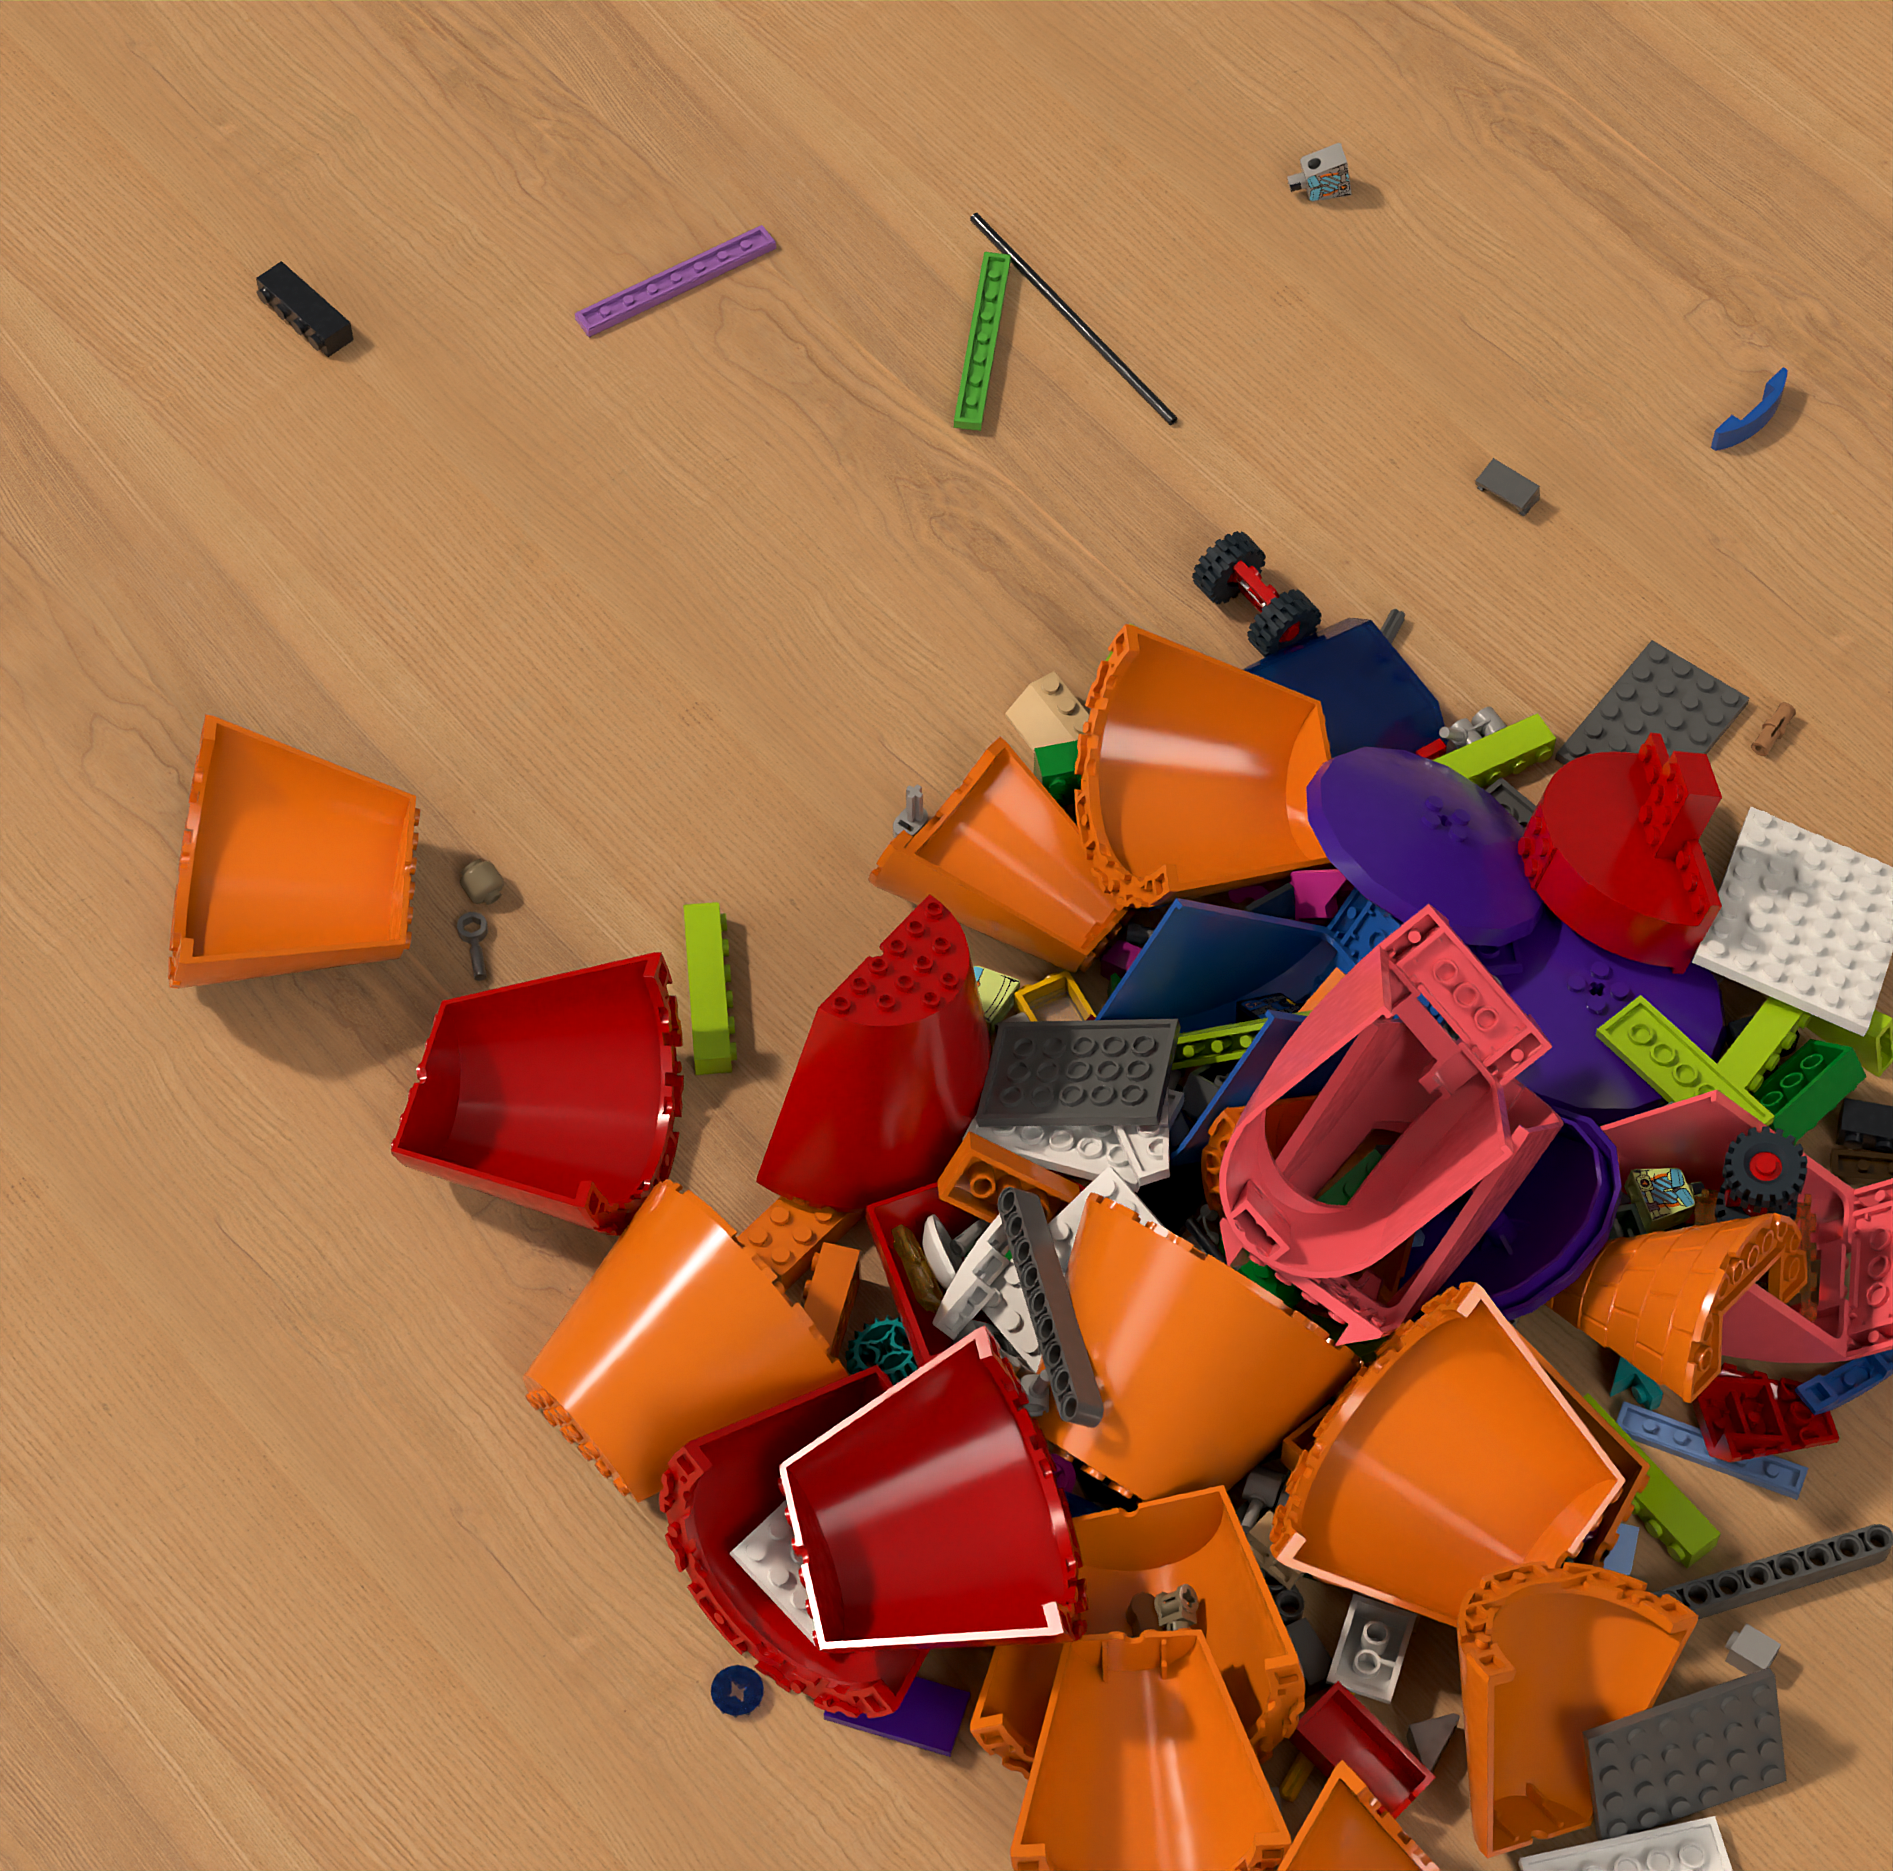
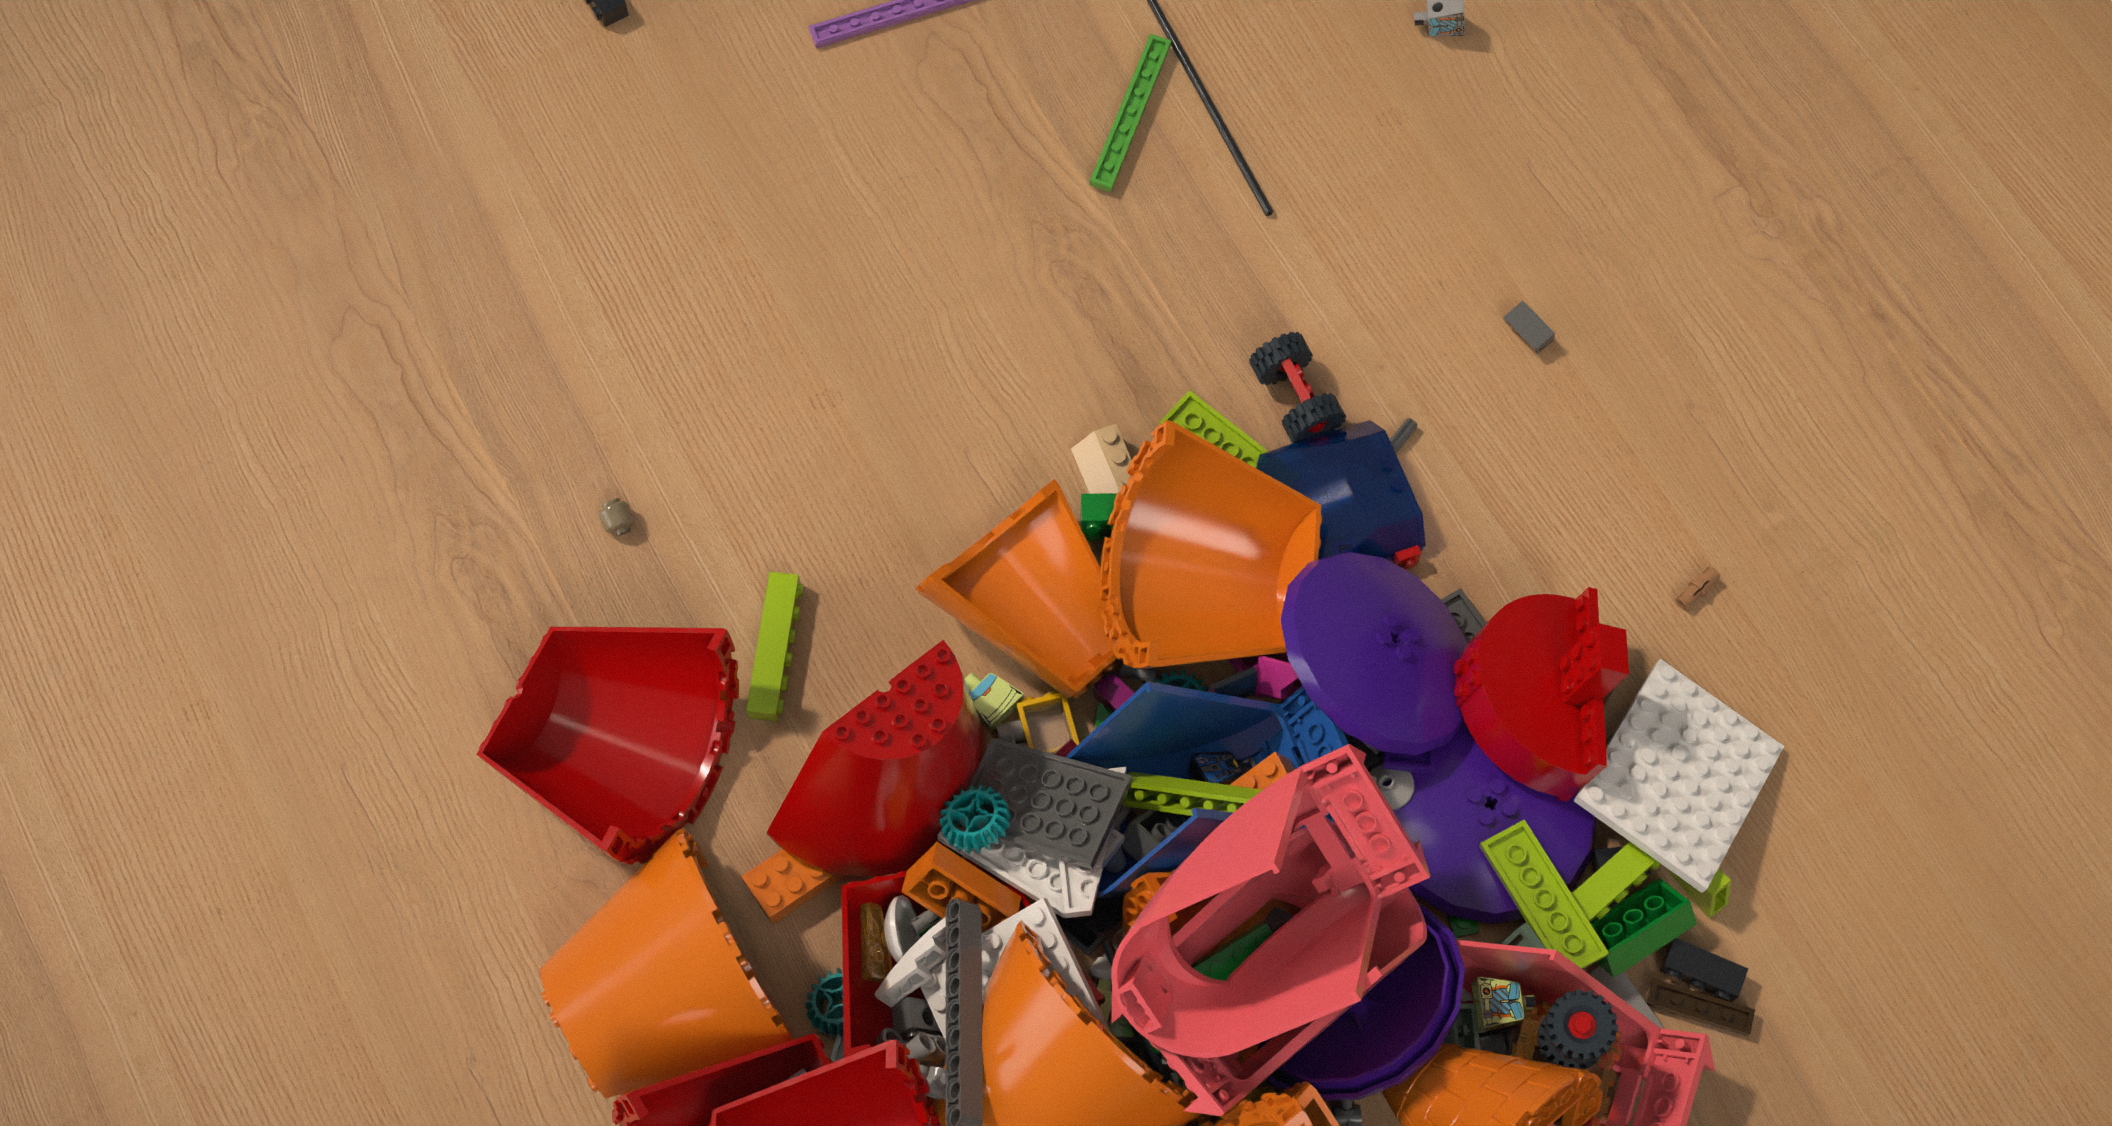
camera: 10 degrees right, 10 degrees up
(287, 864) = (458, 484): orange cone -> none
(474, 938) = (599, 574): flat silver piece -> none
(833, 1292) = (798, 955): orange brick -> none
(914, 813) = (973, 526): light grey piece -> none
(1006, 1102) = (980, 825): none -> teal gear
(1465, 732) = (1444, 547): light grey beam -> none
(1503, 752) = (1463, 567): lime brick -> none
(1662, 697) = (1606, 550): dark grey plate -> none
(1736, 431) = (1731, 312): blue slope -> none

